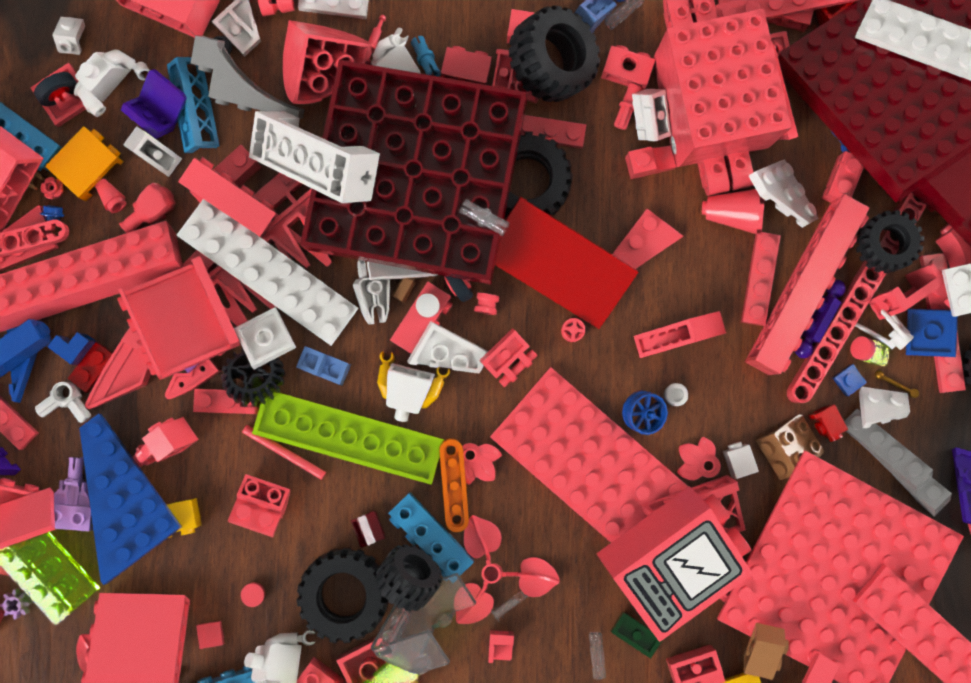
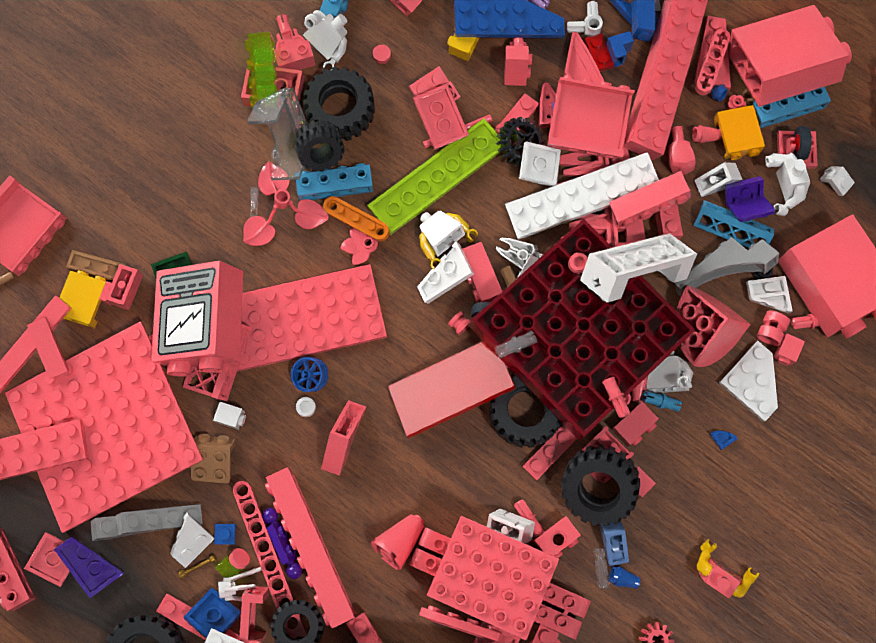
camera: 130 degrees right, 10 degrees down
(210, 634) = (376, 13): coral tile -> none
(283, 477) = (440, 116): none -> coral tile
(323, 366) = (495, 192): medium blue slope -> none
(352, 216) = (577, 263): none -> coral tile
(368, 529) = (369, 149): dark red piece -> none
(375, 35) = (700, 377): coral piece -> none
(427, 305) = (486, 280): white tile -> none
(465, 86) = (616, 397): none -> coral axle
(500, 645) = (234, 178): coral panel -> none
(504, 354) = (417, 311): coral plate -> none
(578, 326) = (400, 364): coral wheel -> none
(597, 655) = (179, 234): clear axle -> none
(646, 240) = (425, 461): coral wing -> none
(649, 161) = (479, 503): coral arch -> none
(695, 459) = (254, 389): coral plate -> none
(760, 279) = (340, 524): coral plate -> none
(765, 651) = (96, 336): medium nougat brick -> none
(781, 186) = (388, 581): white plate -> none
(829, 422) = (208, 495): red brick -> none

